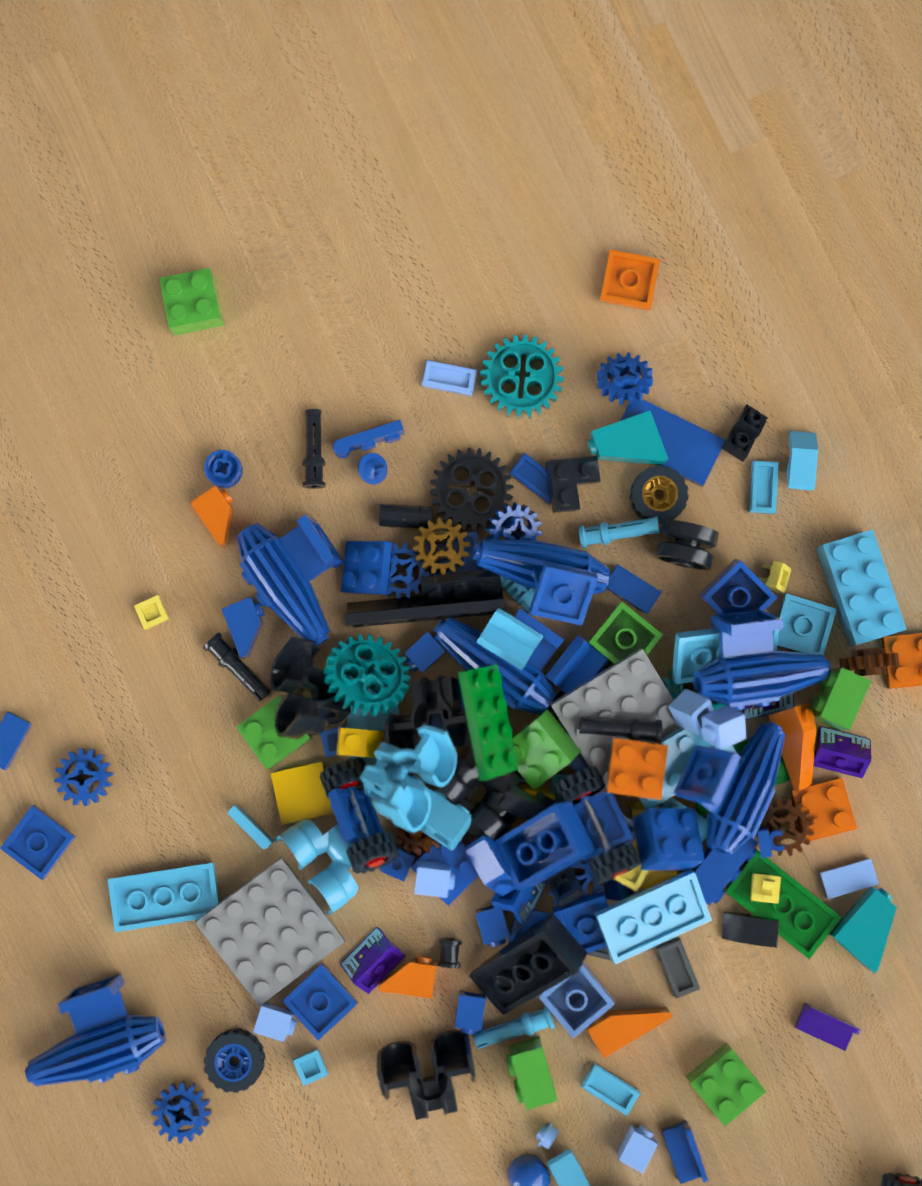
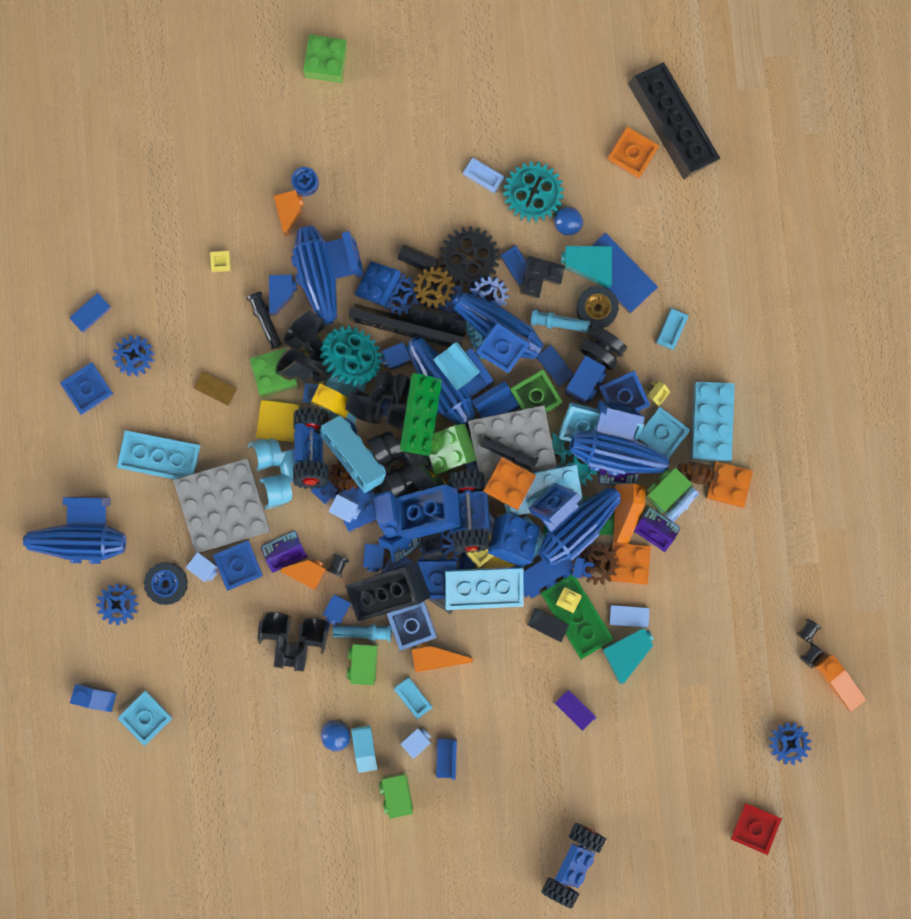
camera: 20 degrees right, 0 degrees up
(205, 780) = (215, 388): none -> pearl gold tile
(261, 837) = (238, 439): medium azure tile -> none
(310, 1066) = (215, 606): medium azure plate -> none
(315, 464) = (369, 199): black pin -> none
(367, 439) = (410, 197): blue plate -> none
(372, 468) = (407, 218): blue hat -> none
(406, 802) = (346, 447): medium azure piece -> none
(547, 1135) = (358, 712): light blue plate -> none
(579, 397) = (568, 221): none -> blue hair
(625, 378) = (603, 219): blue gear -> none
(665, 220) = (673, 120): none -> black arch
(677, 968) = (489, 633): dark grey tile -> none
(680, 595) = (583, 382): none -> blue brick
(688, 710) = (561, 459): light blue brick -> none
(723, 727) = (578, 476): light blue brick -> none
(725, 1084) = (492, 721): bright green brick -> none
(744, 432) = (672, 286): black slope -> none
(802, 460) = (705, 320): medium azure slope -> none
(864, 710) = (681, 504): none -> light blue pin

